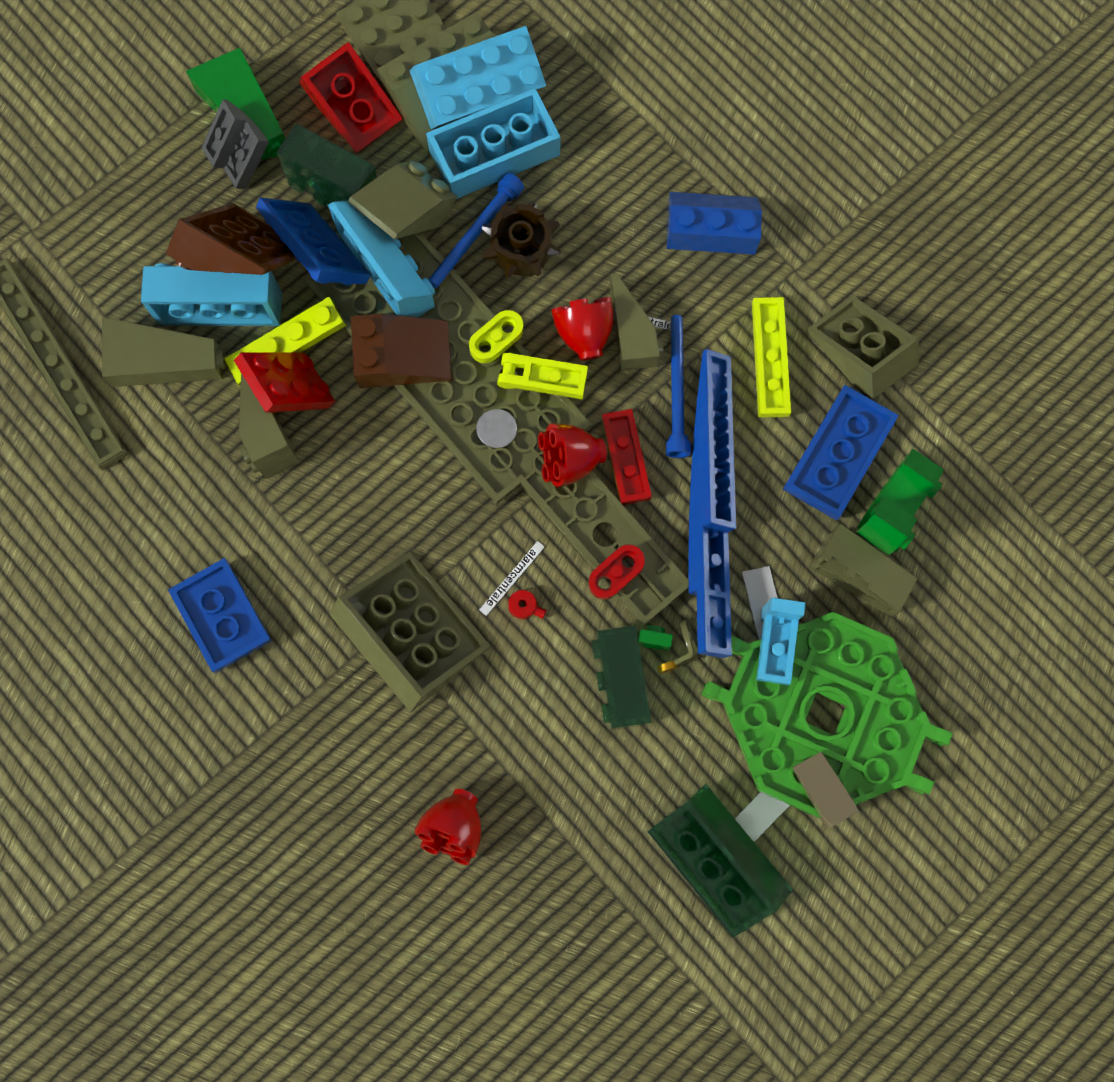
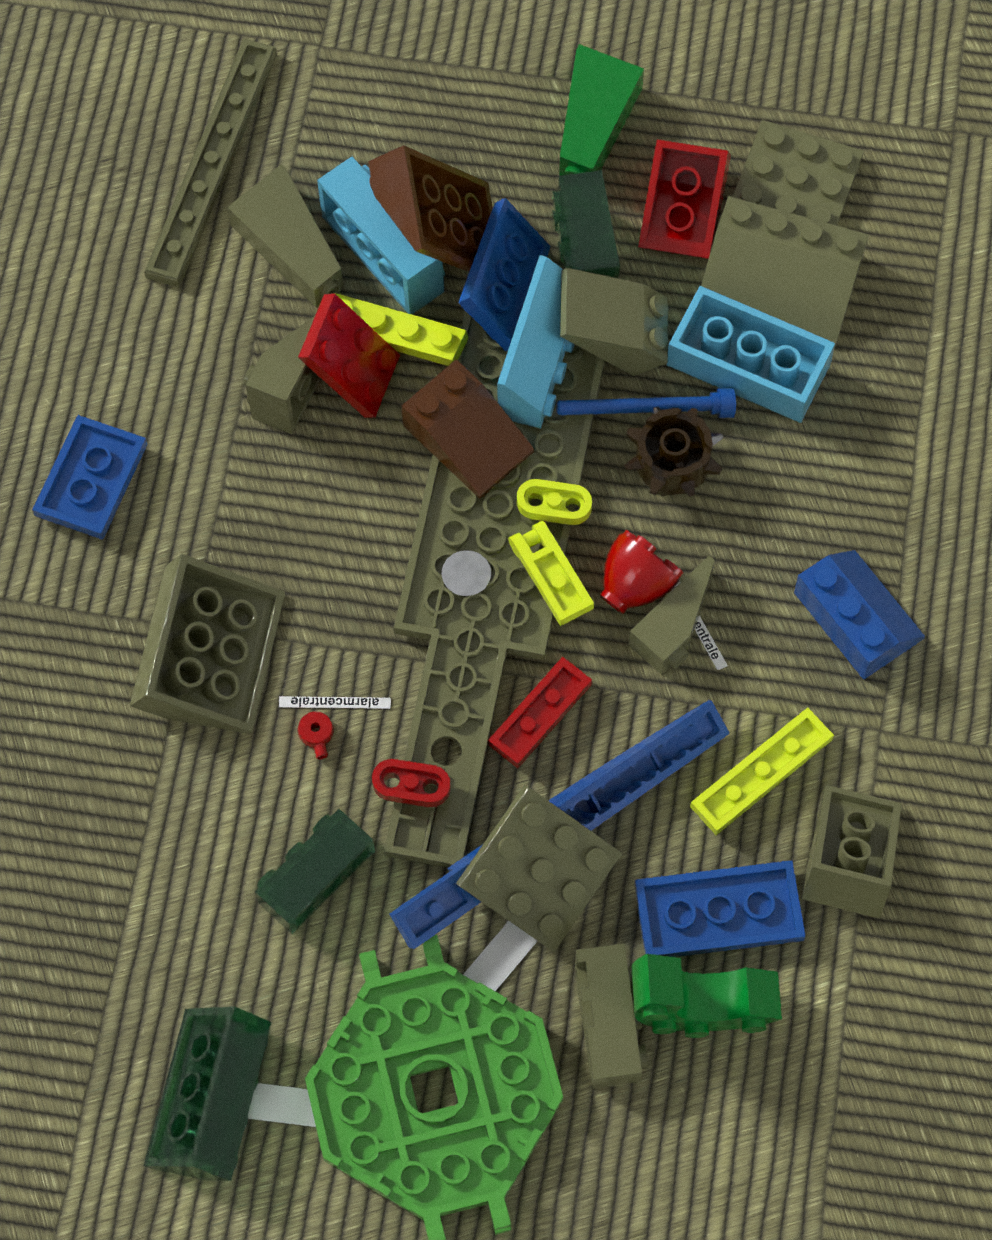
camera: 55 degrees right, 10 degrees down
(234, 144) = (545, 139): dark grey slope -> none
(452, 827) = (50, 822): red piece -> none
(477, 77) = (798, 286): medium azure brick -> none
(569, 453) = (493, 654): red piece -> none
(655, 638) = (378, 871): green plate -> none
(678, 444) = (596, 749): blue piece -> none
(692, 646) = (366, 910): olive piece -> none
(738, 537) = (539, 868): none -> olive plate
(778, 640) = (465, 981): medium azure bracket -> none
(825, 790) = (351, 1137): dark tan slope -> none

